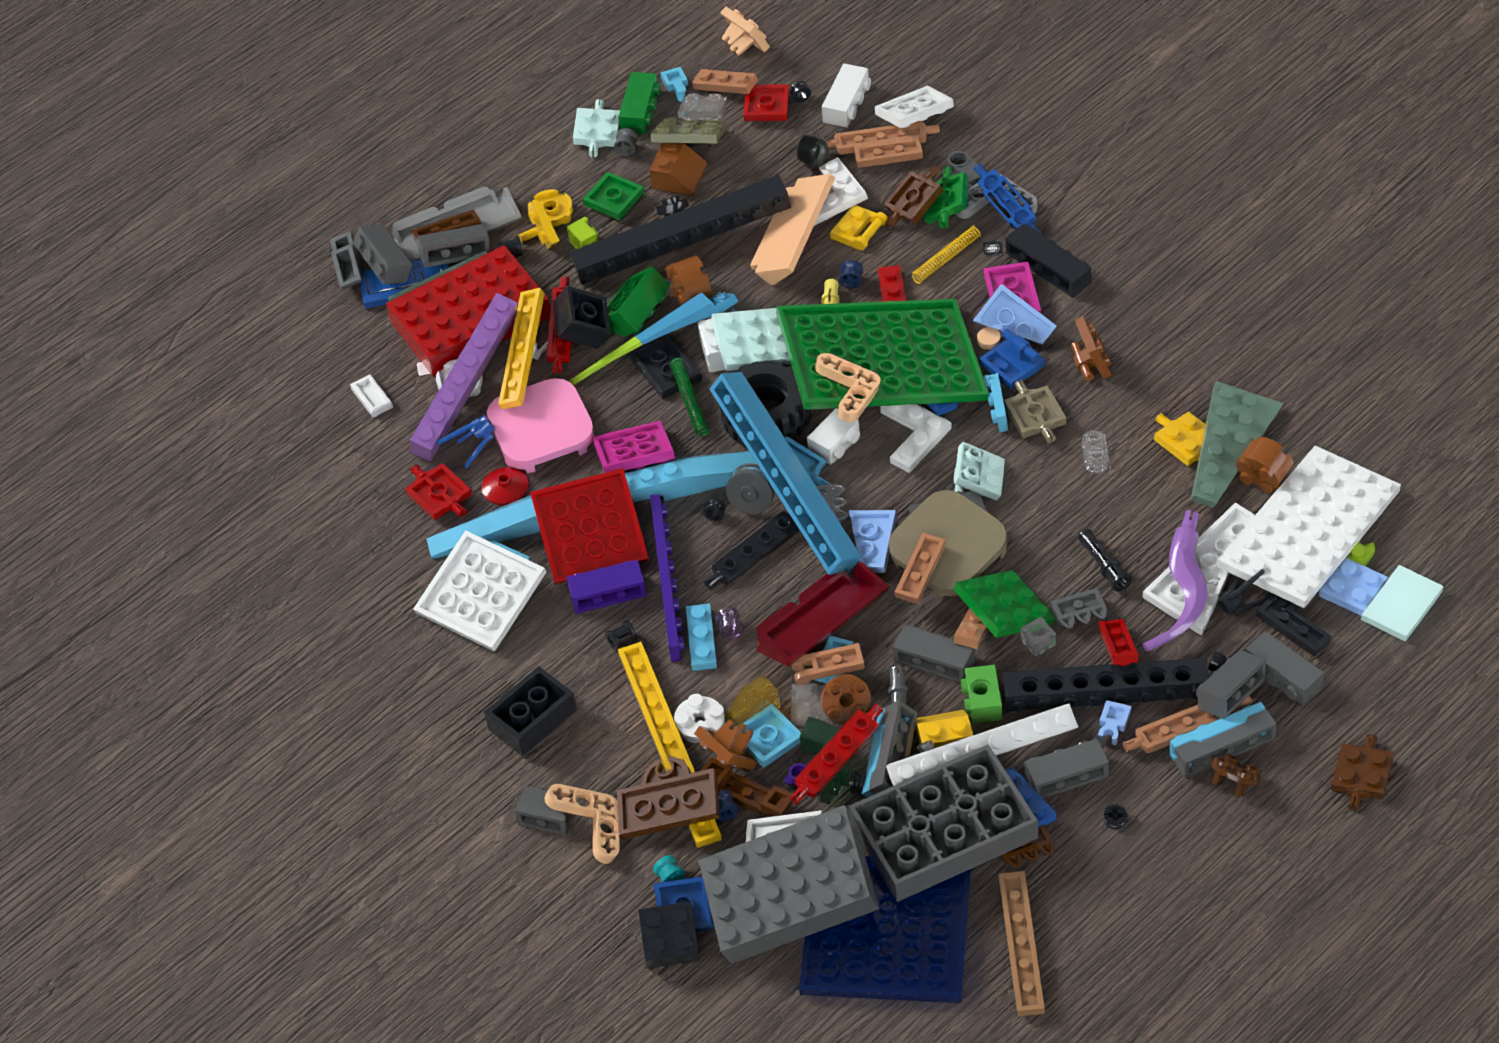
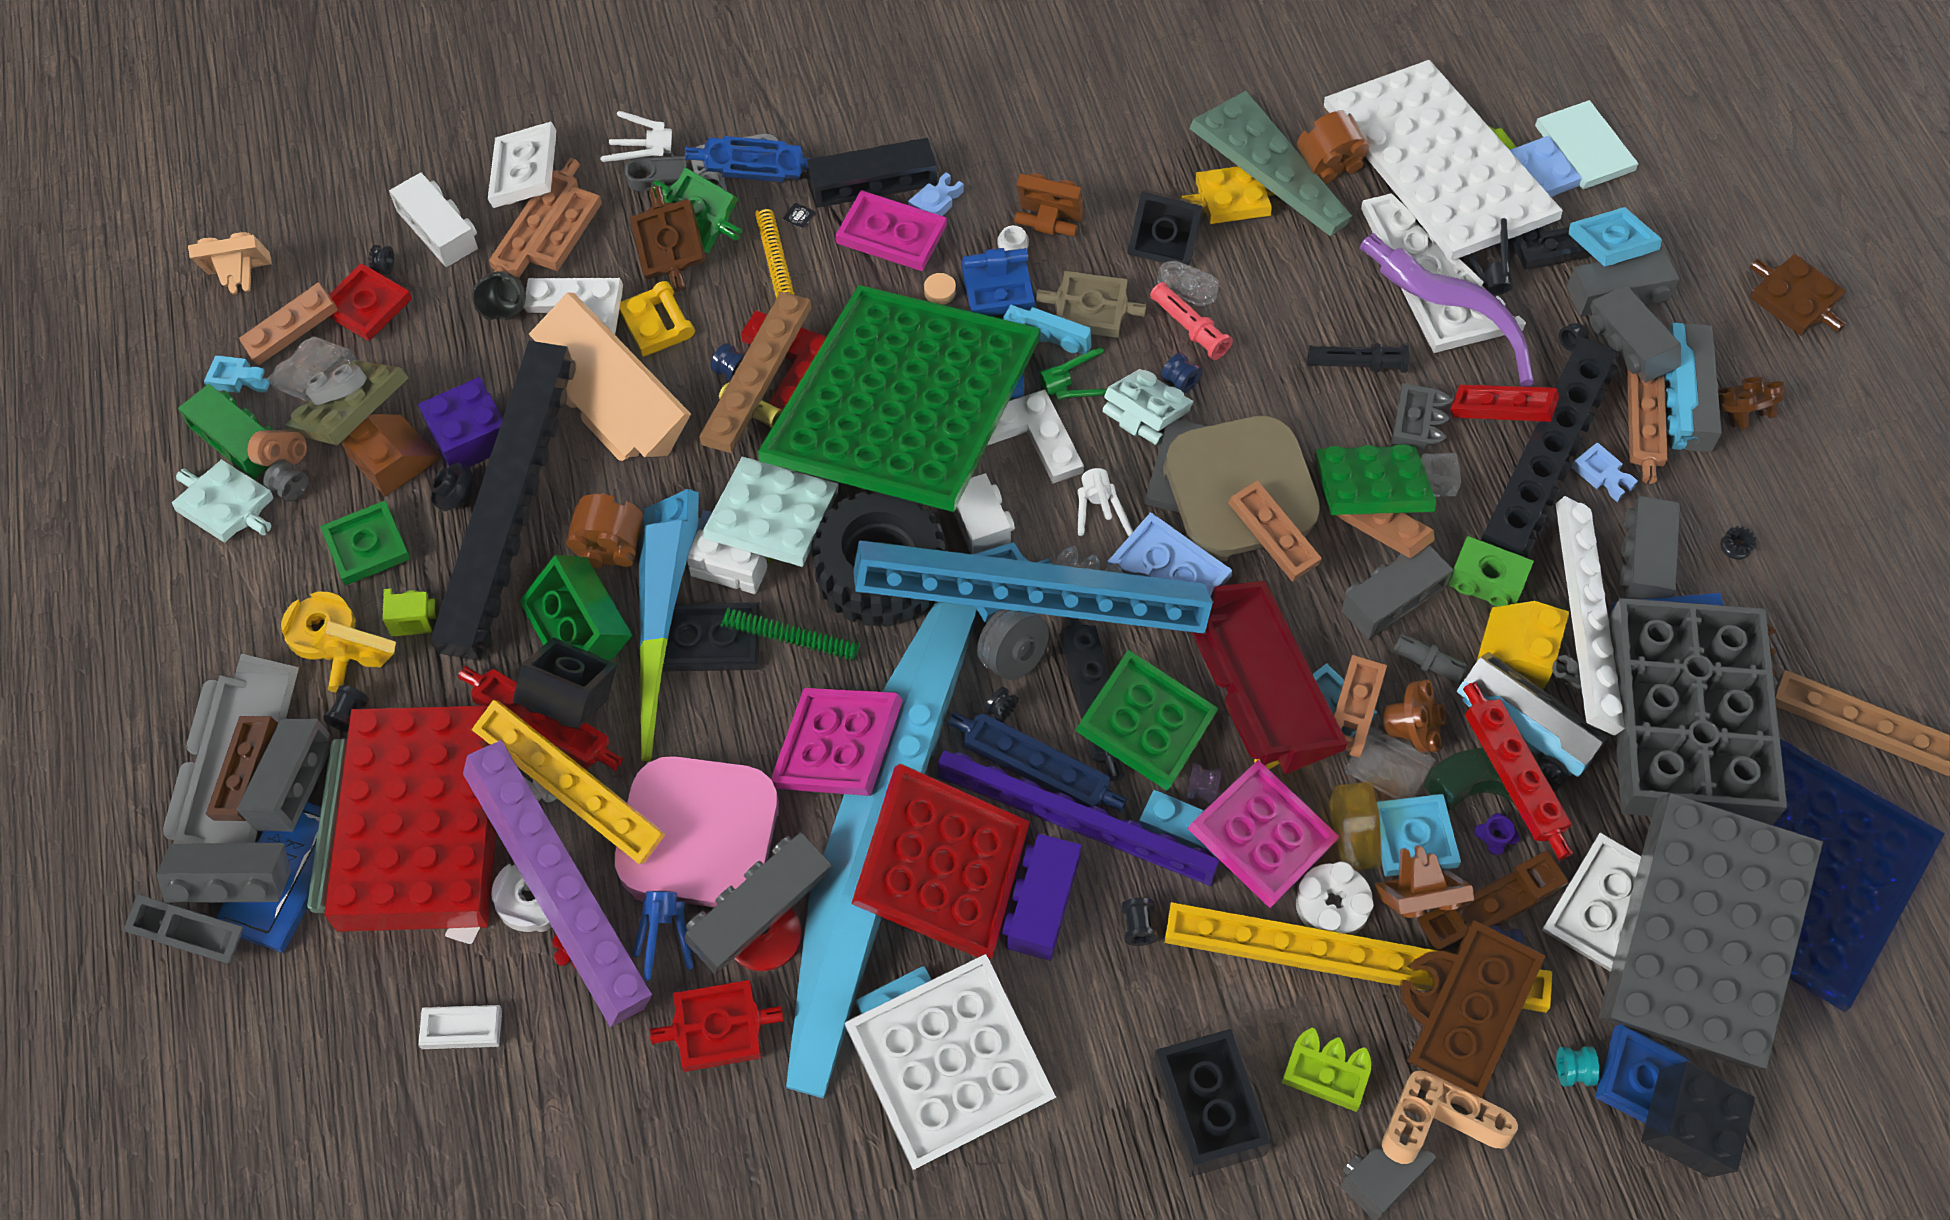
camera: 65 degrees left, 10 degrees up
(510, 462) = (757, 902): none -> dark grey brick
(588, 759) = (1326, 1072): none -> lime plate
(640, 124) = (274, 445): none -> nougat plate
(689, 543) = (1036, 761): none -> dark blue plate
(690, 118) = (335, 384): none -> light grey plate
(711, 659) = (1263, 833): none -> dark pink plate
(714, 181) = (463, 423): none -> dark purple brick
(748, 574) = (1147, 720): none -> green plate
(849, 285) = (755, 372): none -> medium nougat plate
(866, 385) = (958, 427): light nougat beam -> none
(895, 480) = (1098, 490): none -> white plant
(964, 424) = (1057, 379): none -> green plant
(985, 152) = (656, 141): none -> white plant
(1010, 312) = (941, 243): light blue wing -> none
(1015, 478) = (1181, 372): none -> dark blue wheel
(1054, 352) = (1013, 238): none -> white plate
(1055, 301) = (938, 198): none -> light blue plate
(1060, 471) = (1200, 328): none -> coral pin
(1127, 416) = (1166, 227): none -> black slope
(1307, 639) = (1615, 236): none -> medium azure plate

